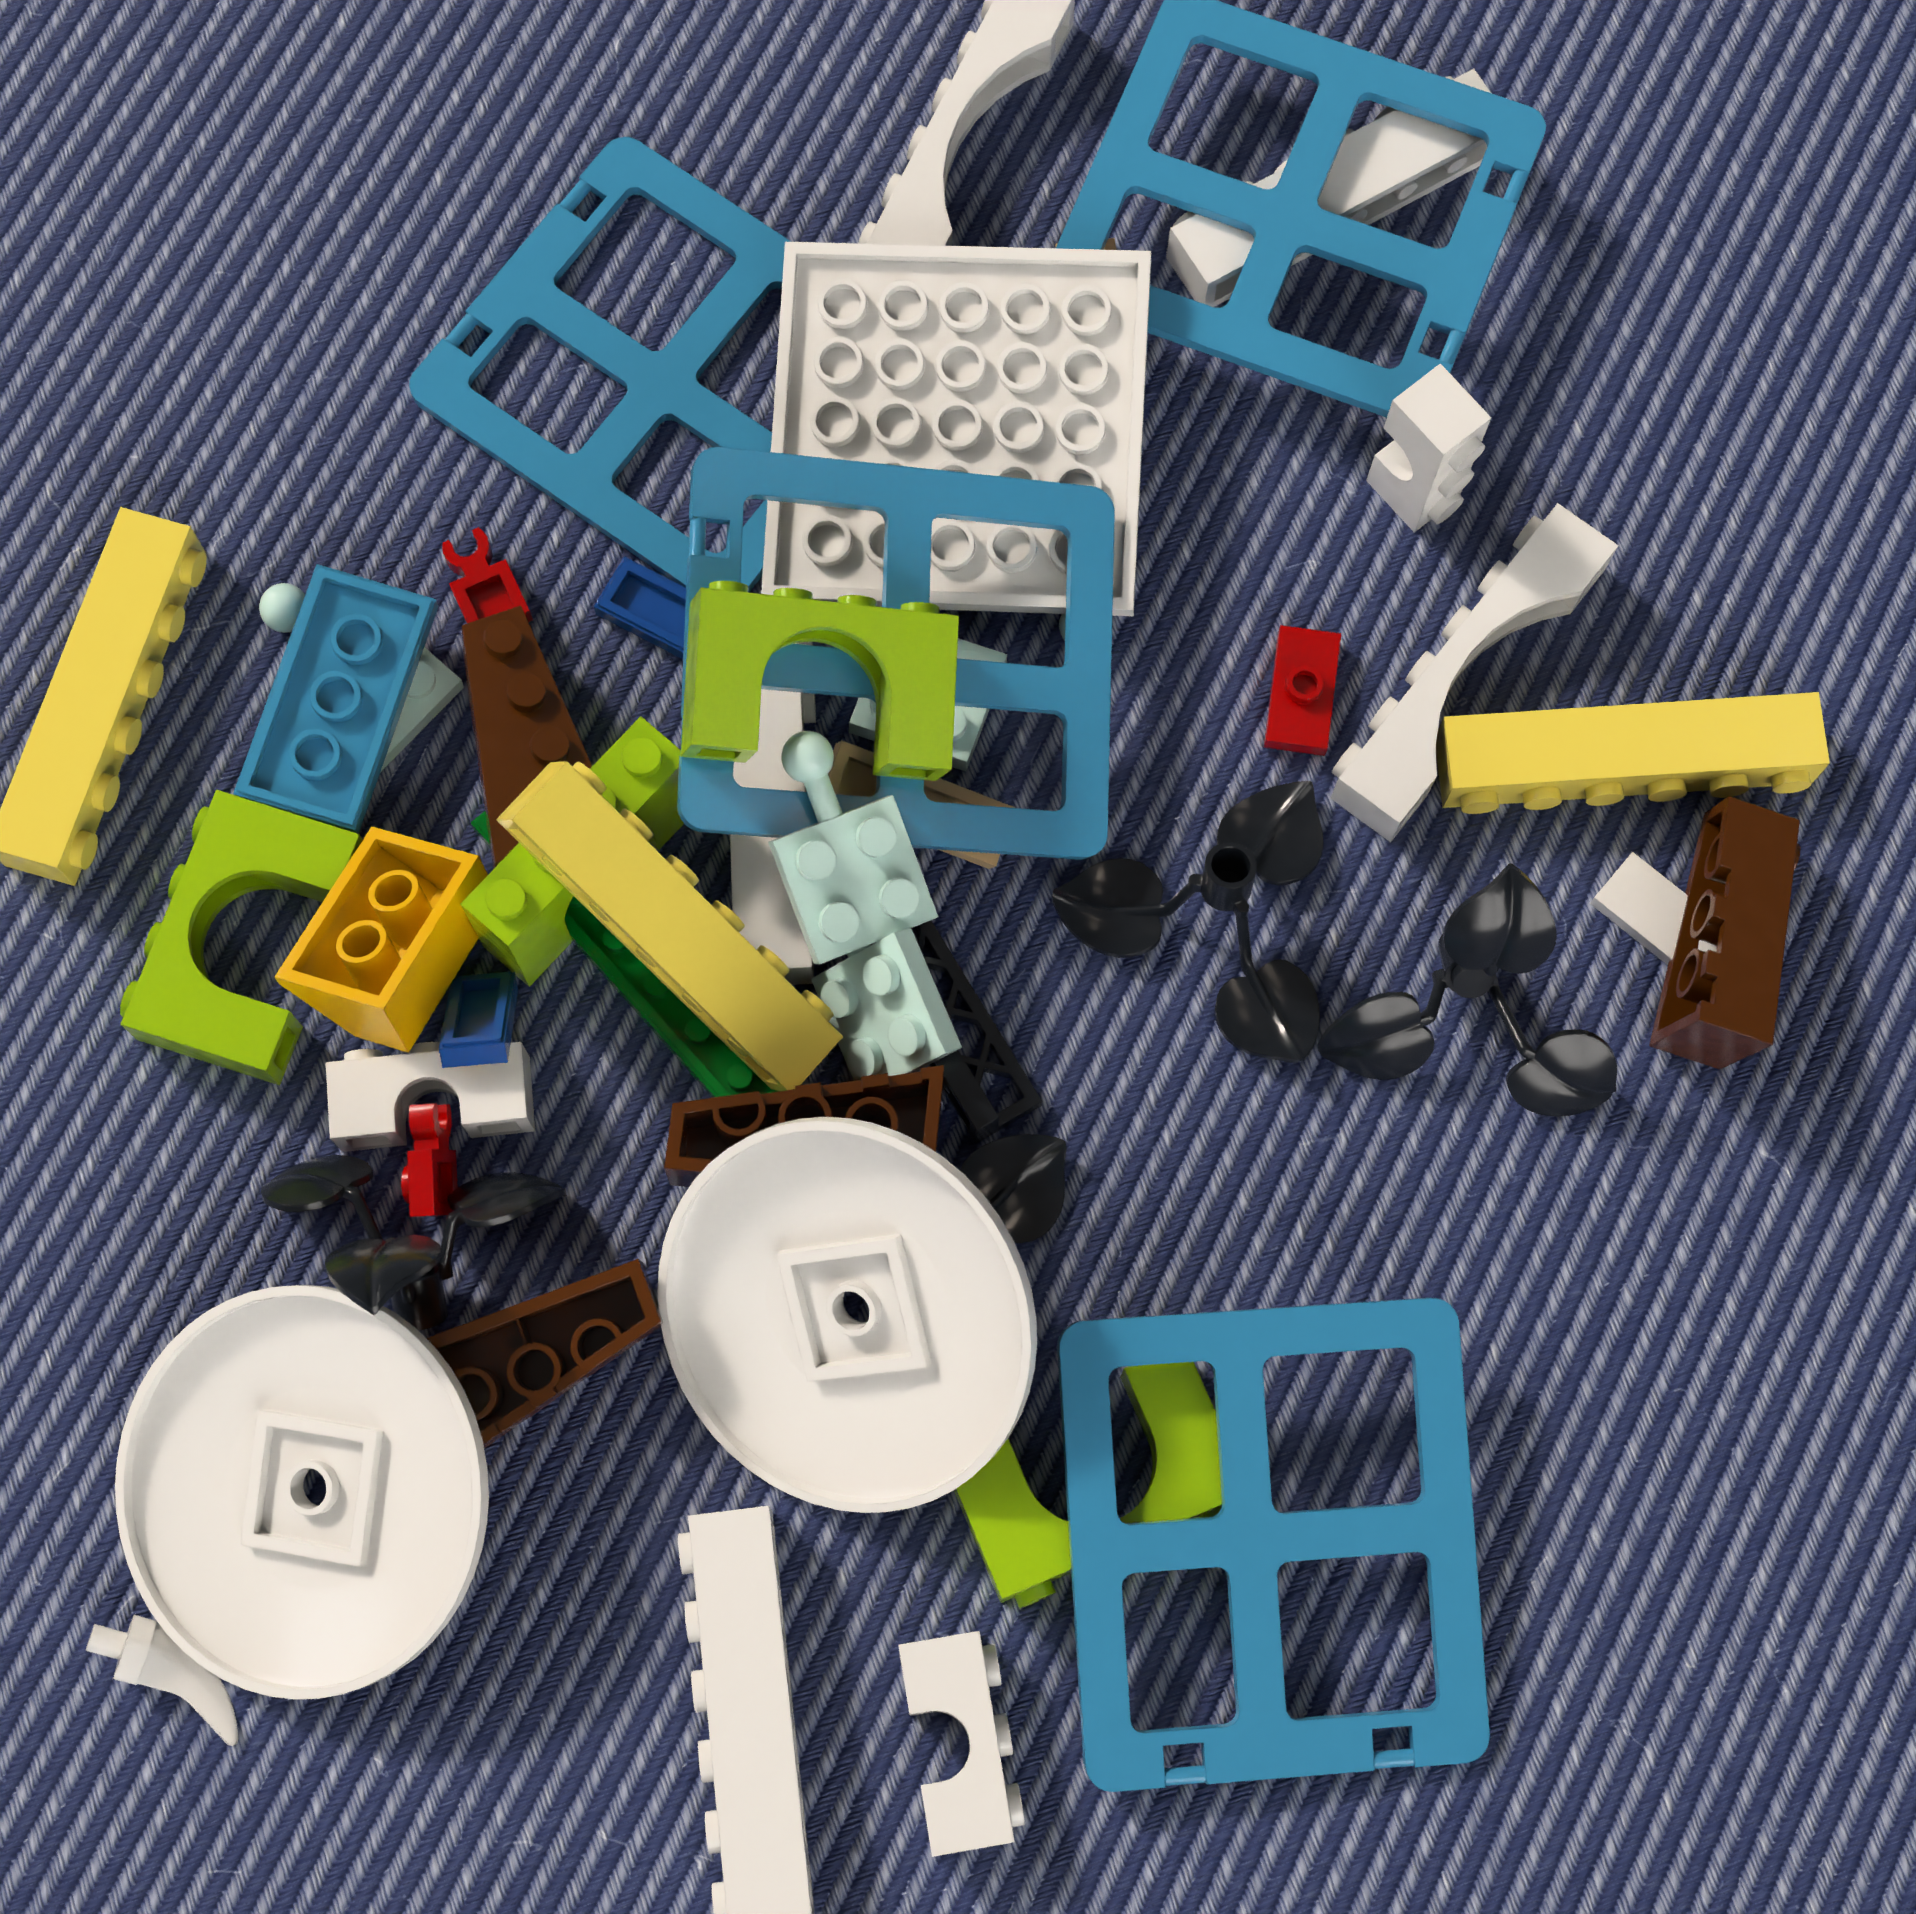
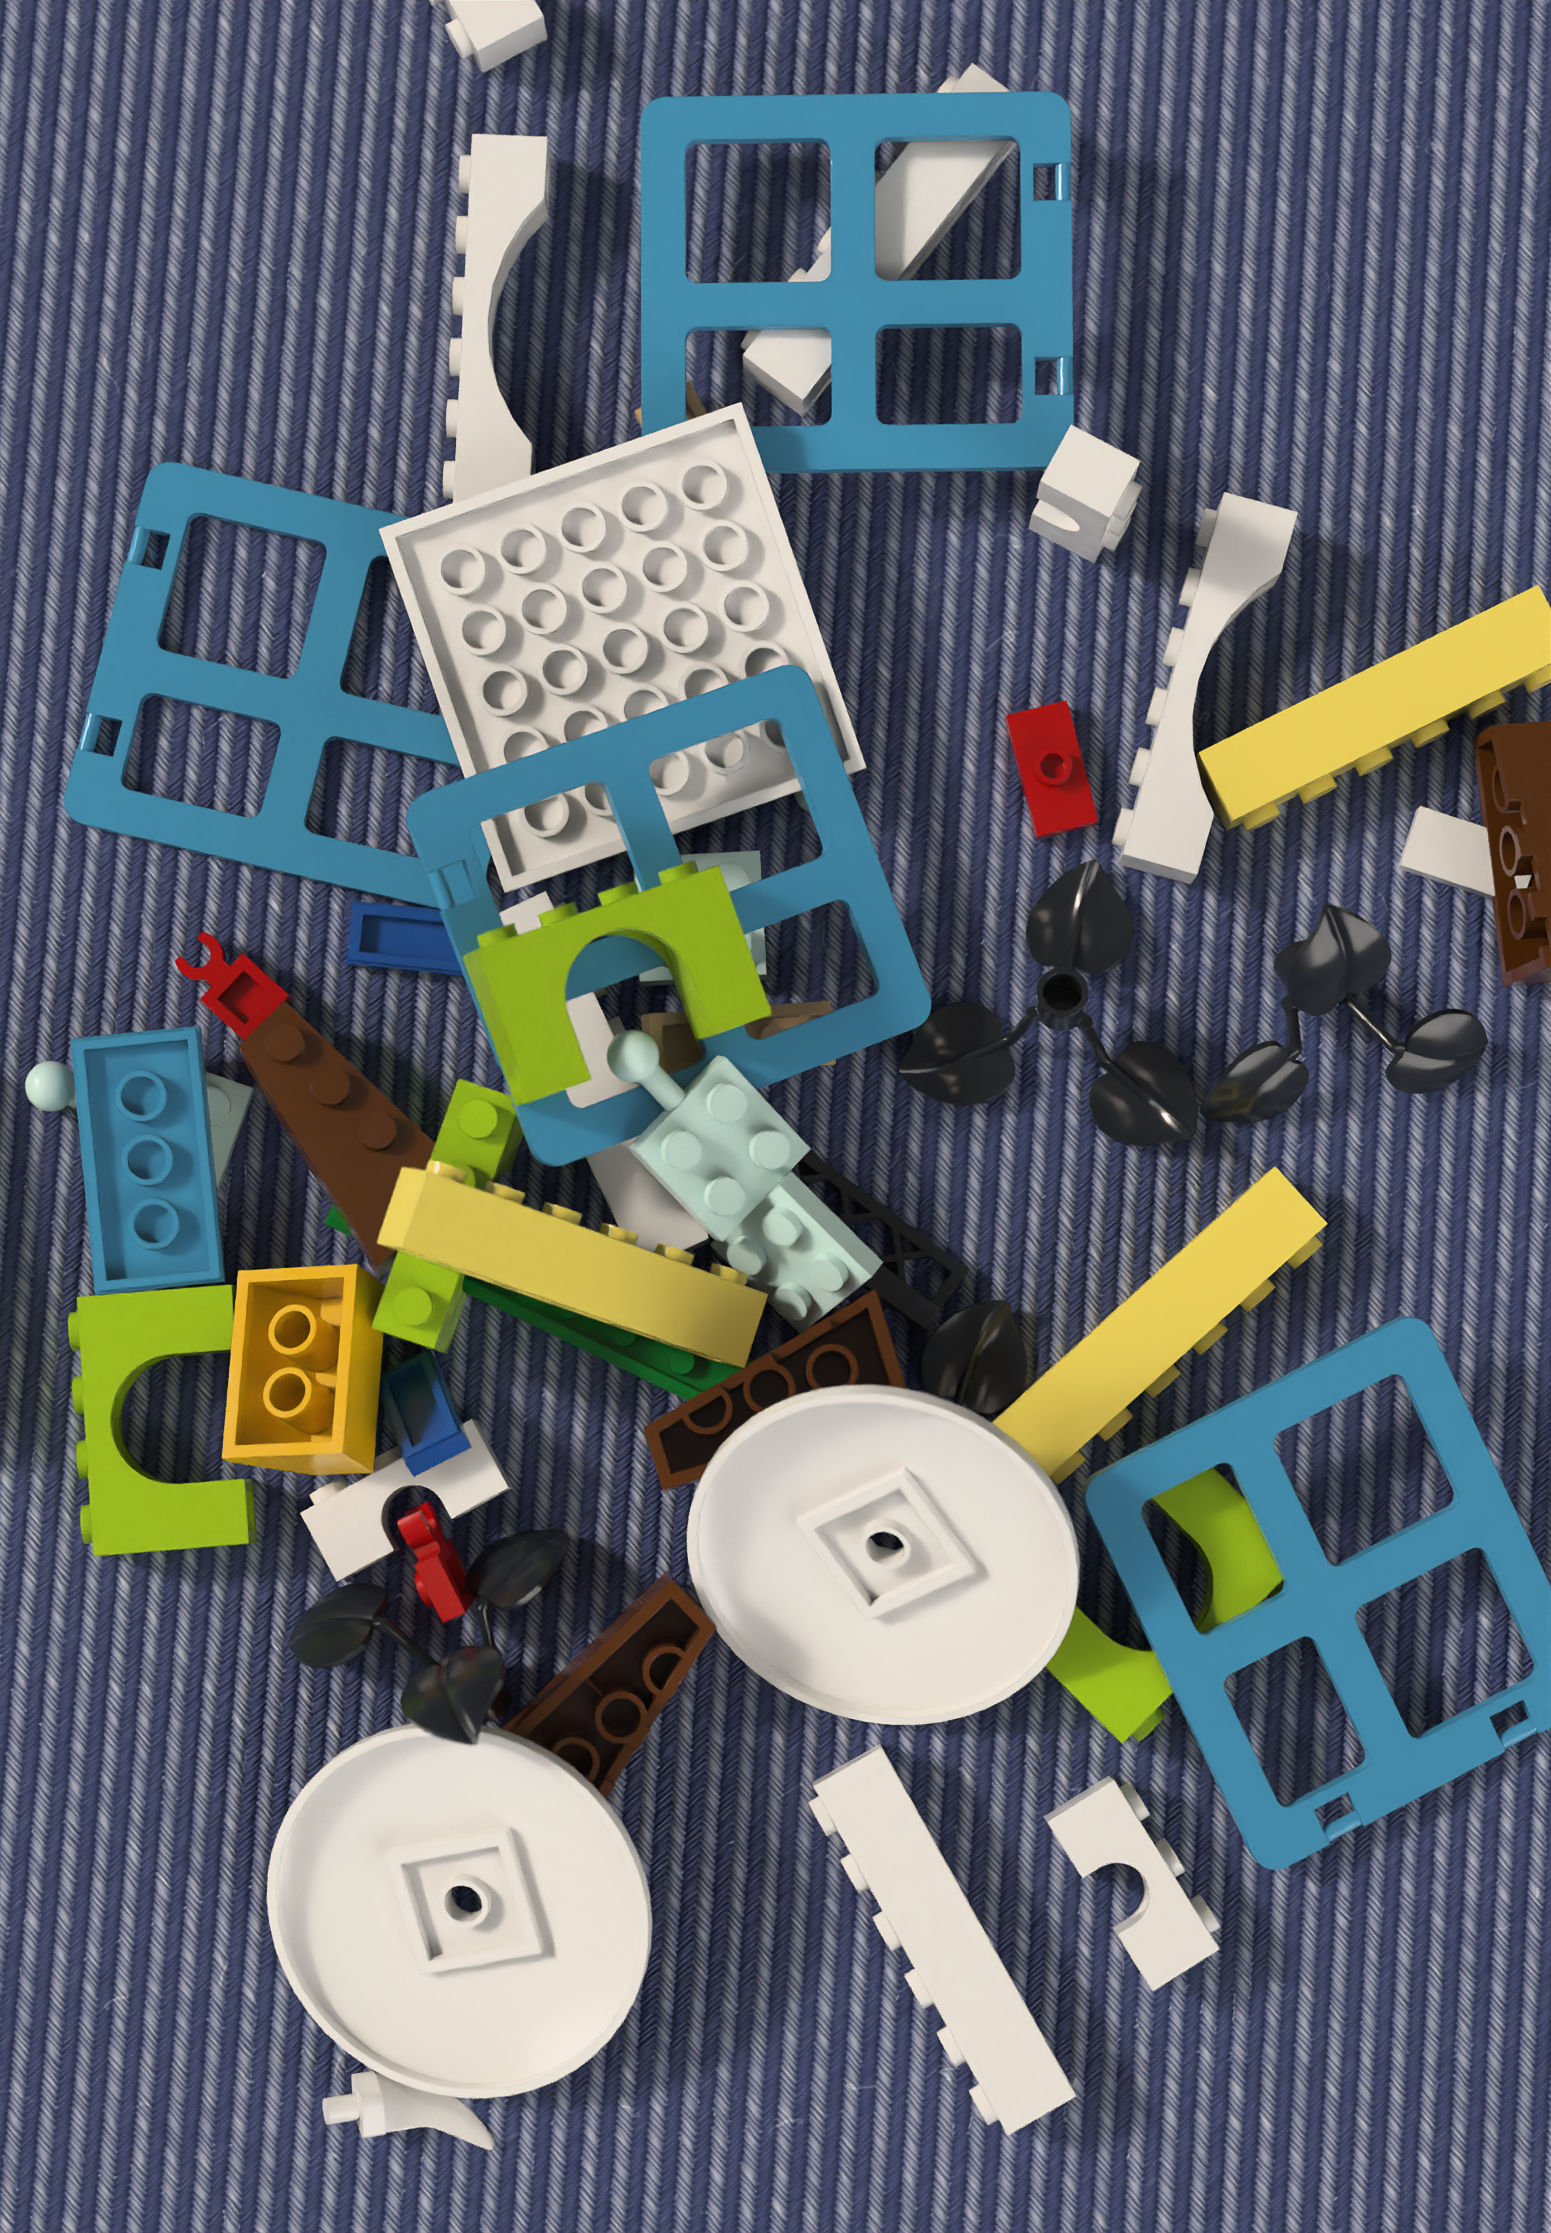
camera: 20 degrees left, 10 degrees up
(1205, 1219) = (1161, 1322): none -> light yellow brick

